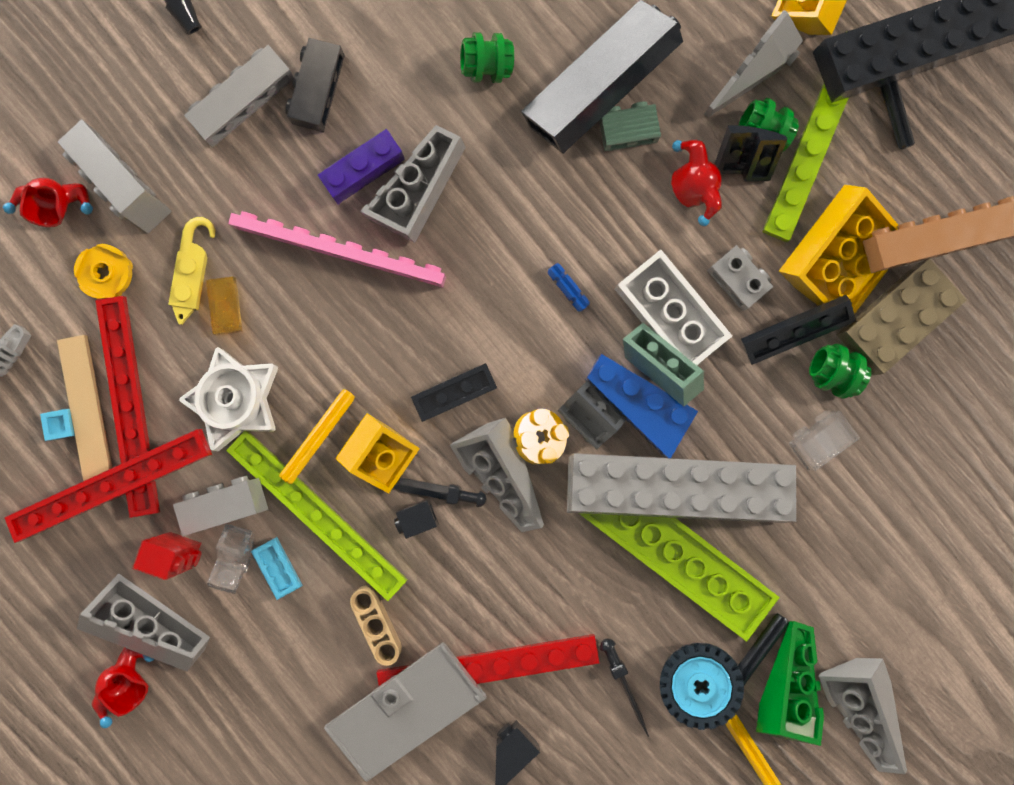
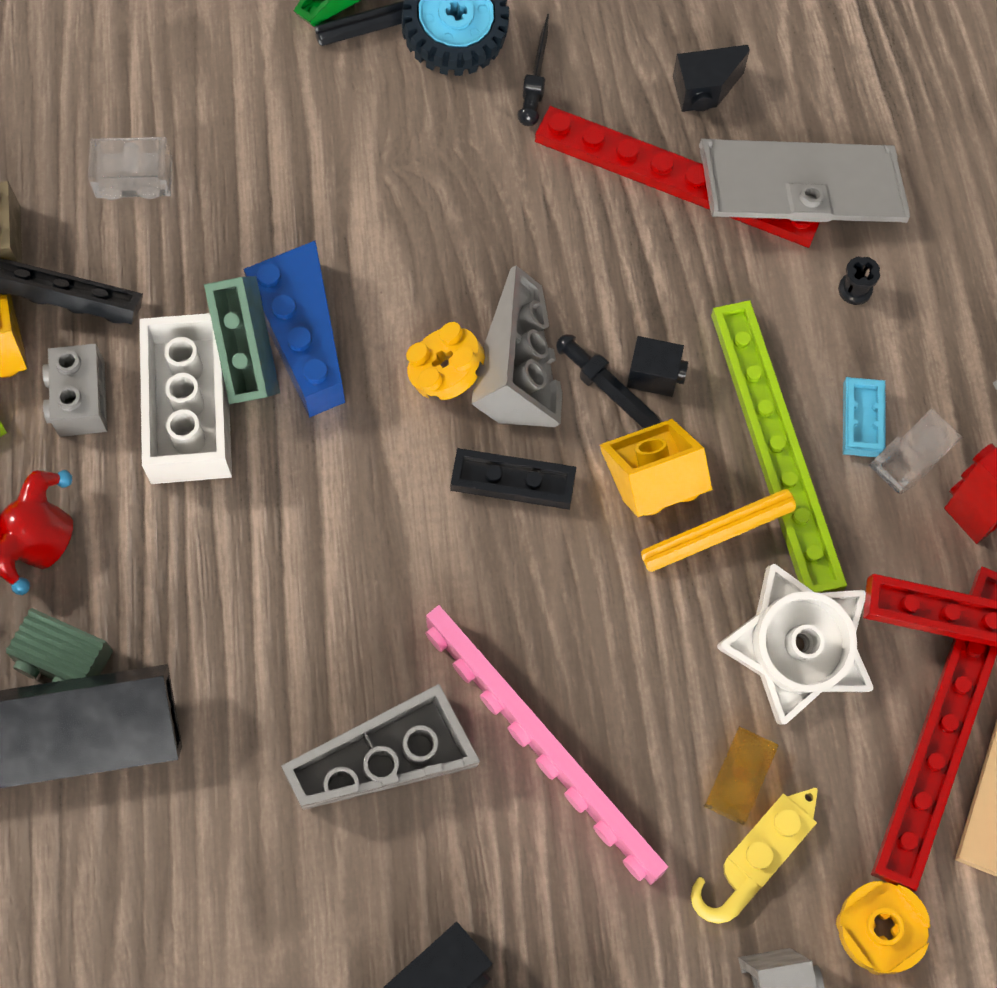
camera: 150 degrees left, 20 degrees down
(220, 505) = (893, 520): light grey brick -> none
(323, 664) = (855, 276): none -> black bush
(362, 166) = (437, 830): dark purple brick -> none
(376, 638) = (780, 270): tan beam -> none
(487, 57) = (167, 864): green piece -> none
(568, 287) = (285, 513): blue axle -> none
(592, 415) = (367, 347): dark grey hinge -> none
(681, 488) = (330, 203): light grey brick -> none
(692, 568) = (386, 166): lime plate -> none
(840, 371) = (52, 220): green piece -> none

